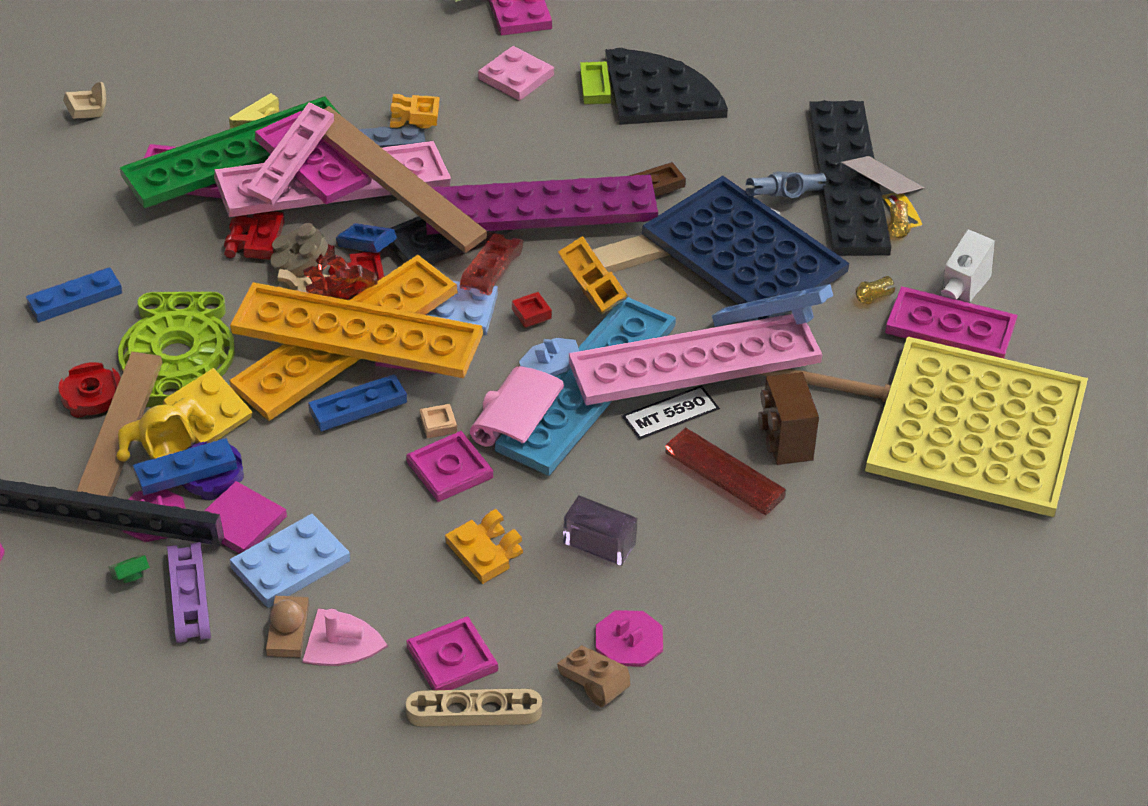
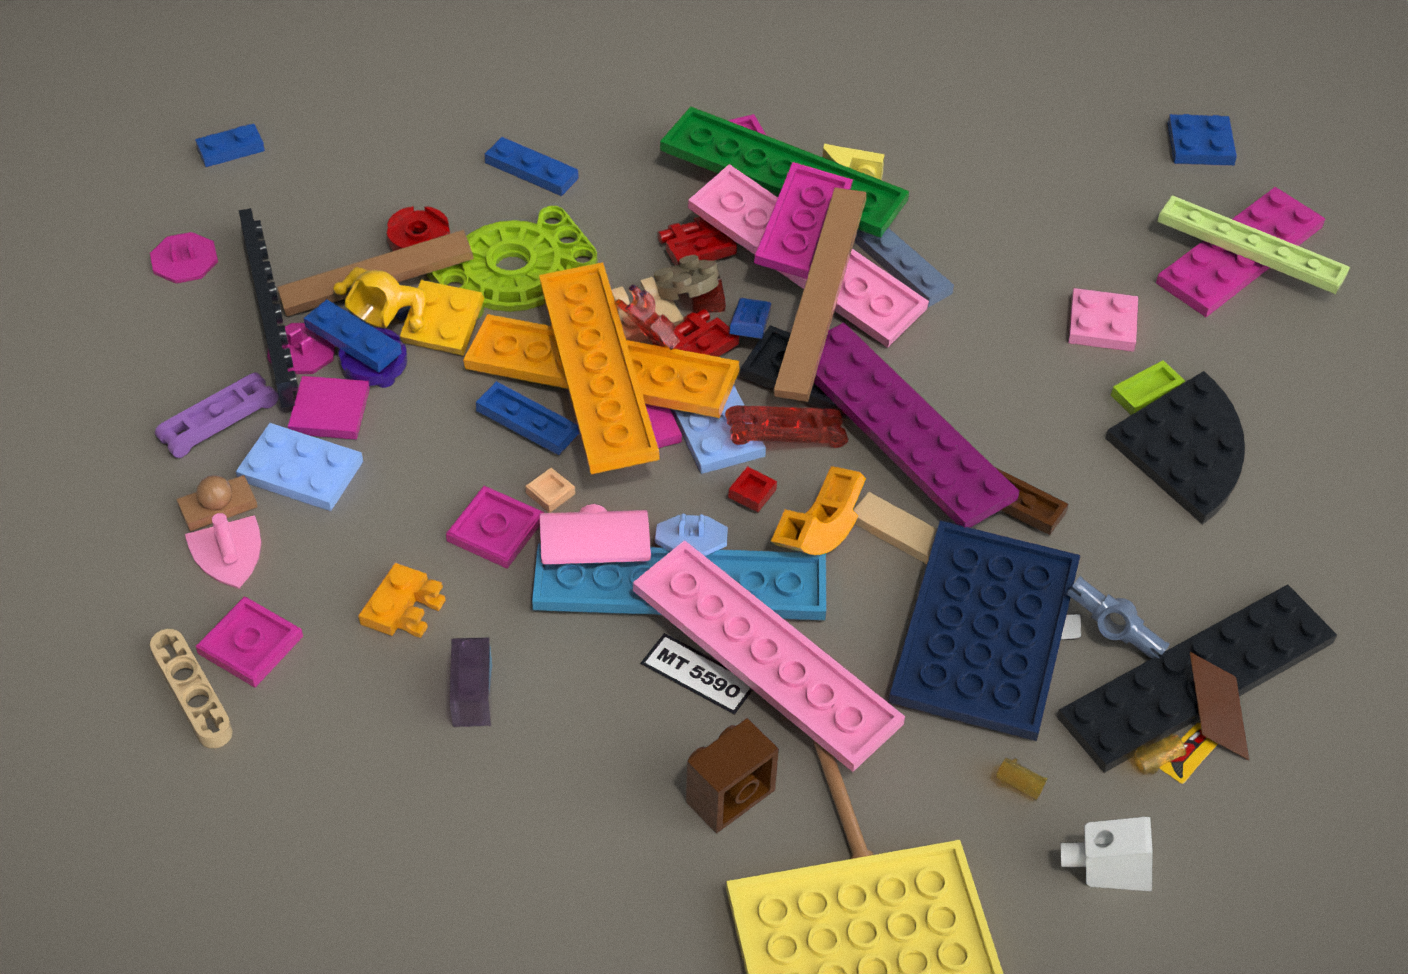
camera: 60 degrees right, 5 degrees up
(86, 103) = (775, 50): tan plate -> none
(129, 569) = (216, 361): green plate -> none
(290, 153) = (774, 198): bright pink hinge -> none
(417, 110) = (964, 270): light orange plate -> none
(598, 674) = (276, 765): medium nougat plate -> none
(629, 638) = (355, 776): dark pink piece -> none
(725, 471) = (632, 757): clear red plate -> none
(798, 302) = (892, 692): medium blue hinge -> none
(951, 322) = (1023, 880): dark pink plate -> none

